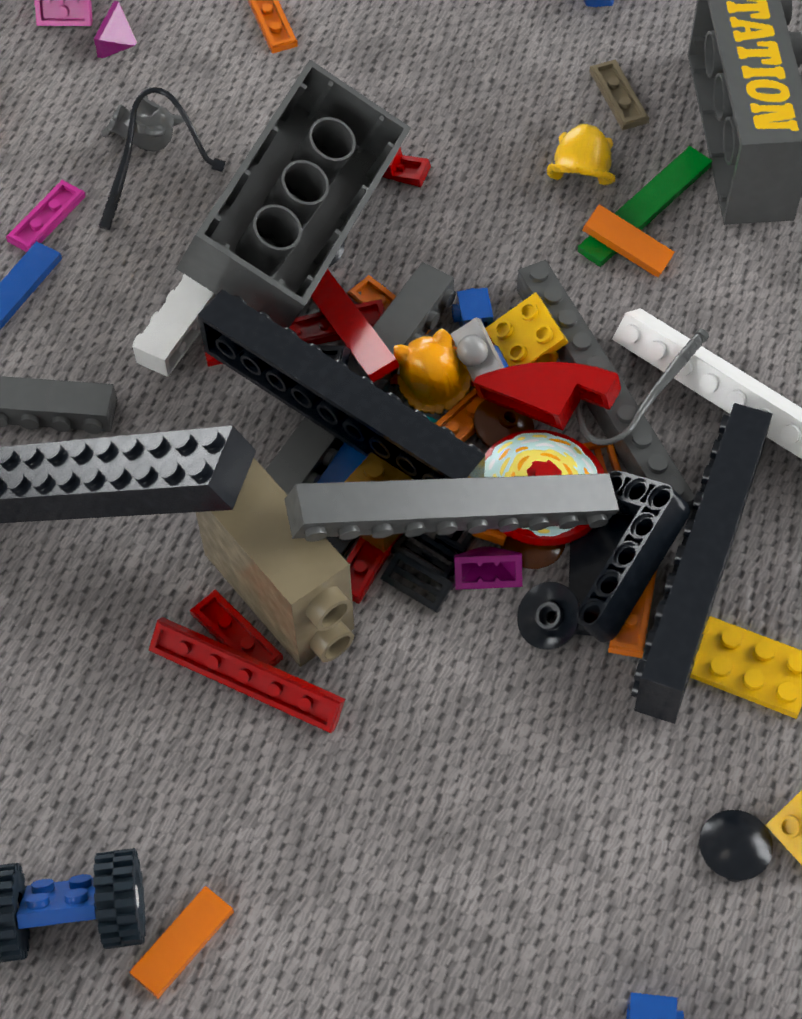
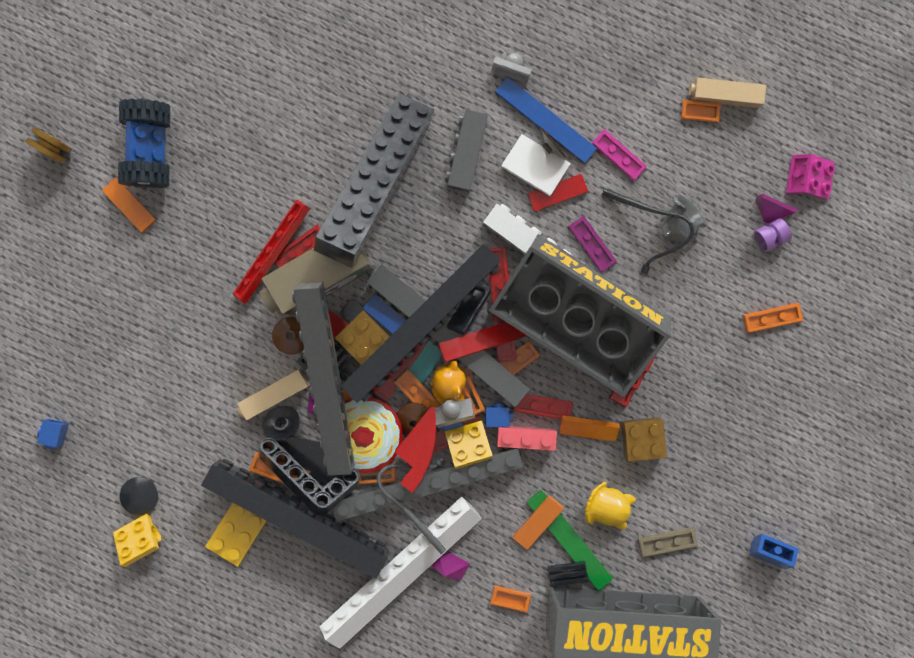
camera: 90 degrees right, 30 degrees up
(31, 286) = (550, 145): none -> dark brown dish
(67, 313) = (535, 166): none -> white tile
(109, 283) = (565, 190): none -> red tile
(153, 26) = (774, 234): none -> medium lavender wheel
(178, 236) = (592, 244): none -> magenta tile
(388, 643) = (280, 339): none -> reddish brown dish
(449, 252) = (544, 406): none -> red tile
(470, 199) = (589, 428): none -> orange tile
(473, 132) = (643, 439): none -> pearl gold brick
(500, 267) = (526, 438): none -> coral brick
(501, 636) = (272, 394): none -> tan brick
(702, 198) = (570, 580): none -> black tile
(728, 344) = (451, 566): none -> magenta slope
(757, 265) = (510, 599): none -> orange tile

